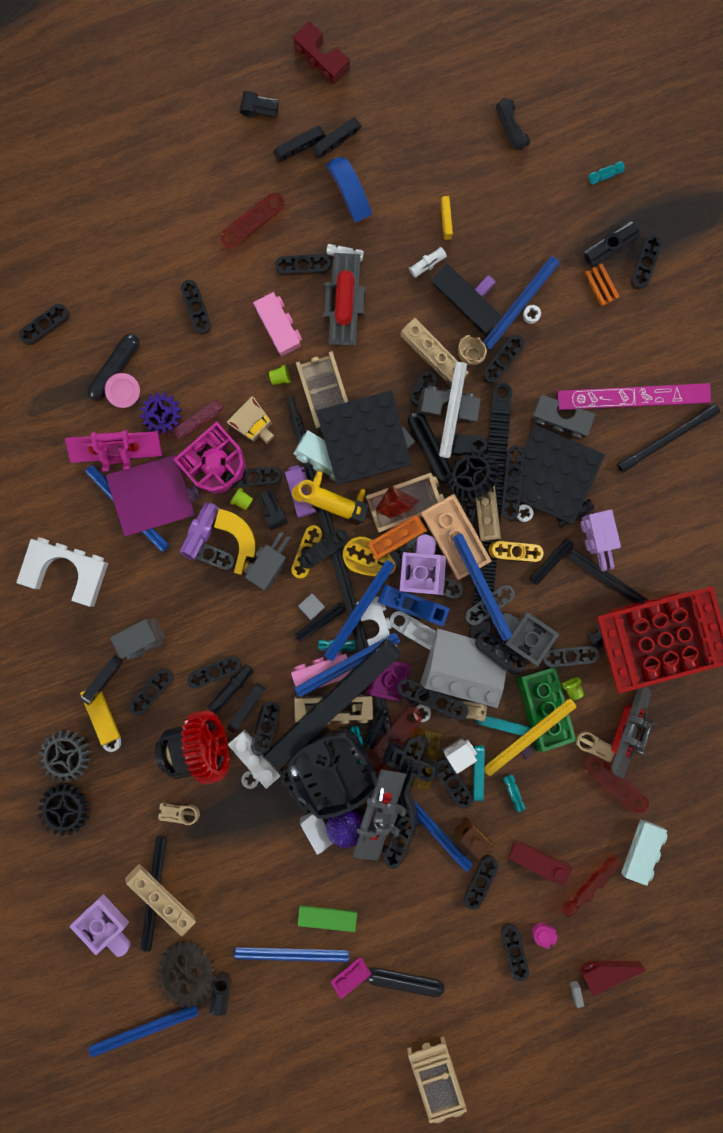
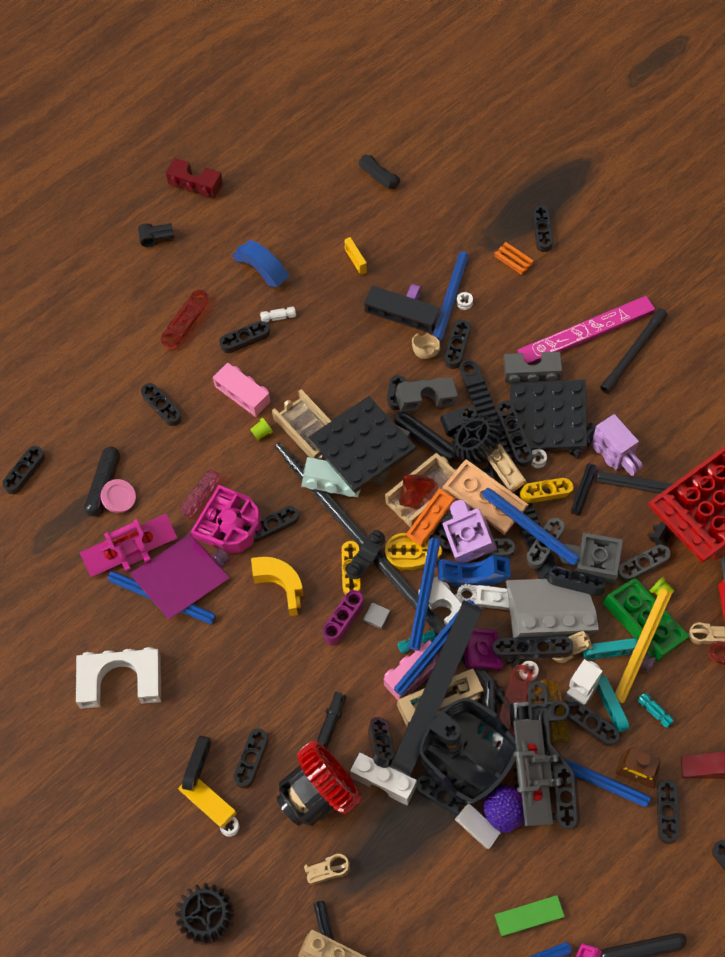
camera: 20 degrees left, 25 degrees down
(61, 749) = (179, 863): dark grey gear -> none
(138, 638) = (219, 701): dark grey brick -> none
(152, 414) = (167, 493): dark purple gear -> none
(199, 531) = (240, 586): medium lavender piece -> none
(211, 679) = (307, 722): black beam -> none
(219, 563) = (271, 601): dark grey beam -> none
(241, 499) = (268, 546): lime piece -> none
(245, 782) = (382, 810): white bush -> none
(246, 707) = (353, 734): black beam -> none
(252, 422) = (251, 476): tan torso -> none
(268, 563) = (319, 589): dark grey brick -> none
(271, 601) = (342, 626): none -> magenta beam
(273, 513) = (305, 547): black piece -> none
(294, 477) = (322, 518): medium lavender window -> none
(299, 144) = (202, 248): black beam -> none
(319, 622) = (391, 626): black axle -> none
(336, 138) = (233, 233): black beam -> none
(348, 299) = (298, 345): dark grey piece -> none
(352, 511) = (331, 507): yellow piece -> none
(427, 262) = (354, 295): white pin -> none
(430, 350) = (393, 359): tan brick -> none
(453, 409) = (432, 394): white axle -> none
(606, 172) = (474, 178): teal axle -> none
(620, 238) = (506, 224): black piece -> none

